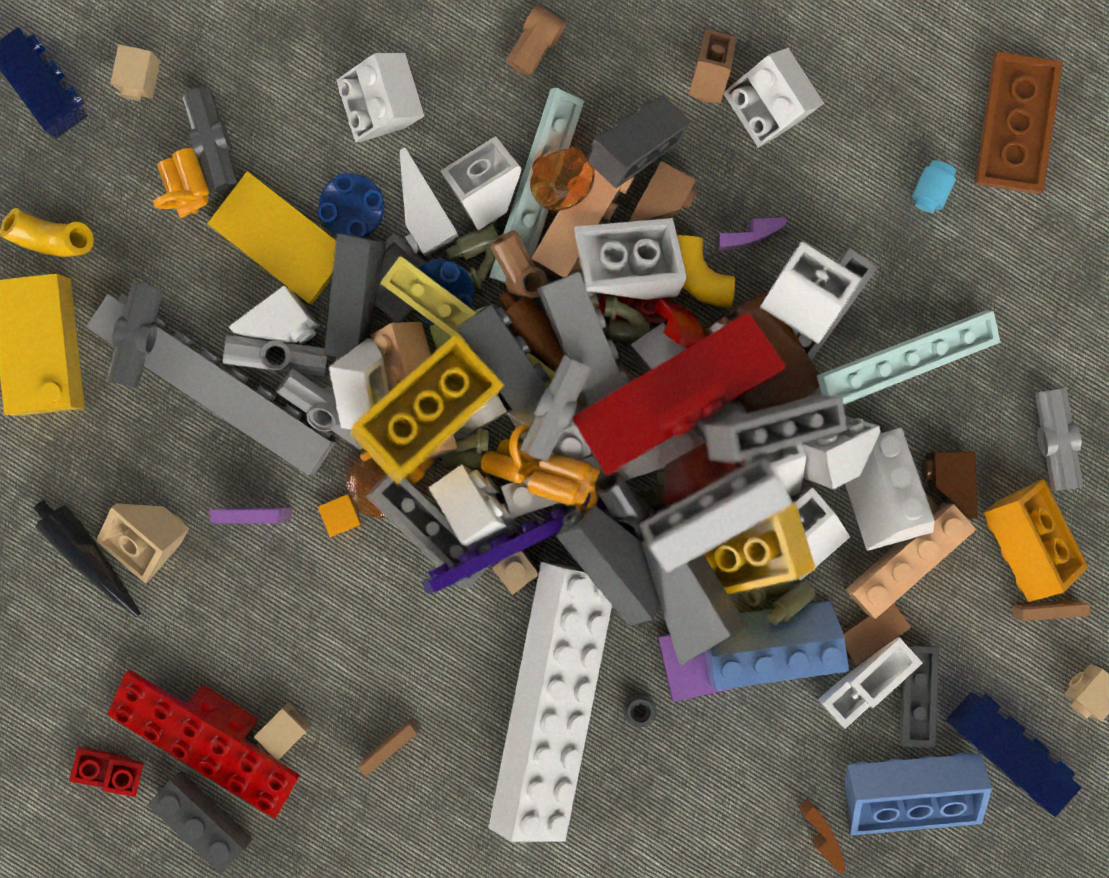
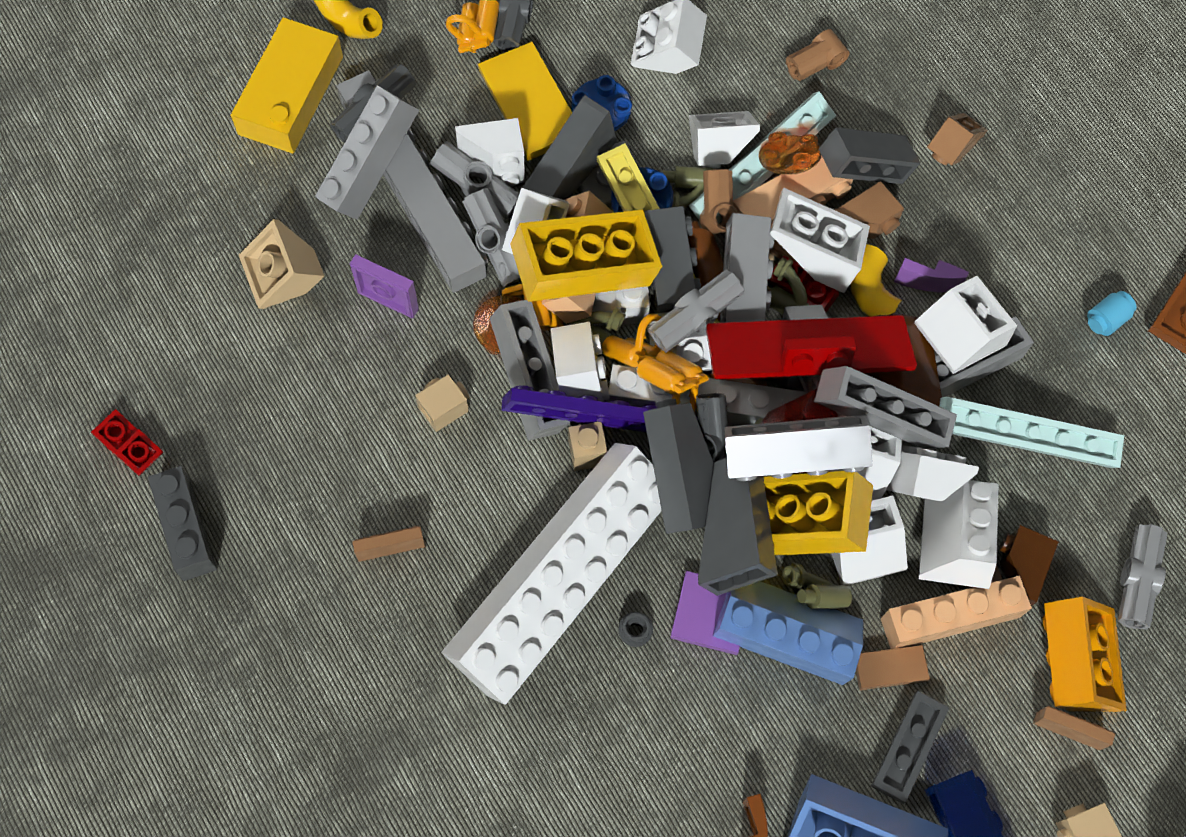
camera: 15 degrees right, 20 degrees down
(81, 551) = (222, 257): black piece -> none
(158, 391) = (366, 153): none -> light grey brick
(207, 737) = (231, 456): red bracket -> none
(282, 732) = (301, 483): tan brick -> none
(339, 515) = (456, 332): light orange tile -> none
(364, 592) = (442, 401): none -> tan brick
(424, 216) = (659, 134): white slope -> none
(681, 324) = (833, 305): red slope -> none
(773, 97) = (999, 182): white slope -> none
(869, 682) = (867, 706): white slope -> none

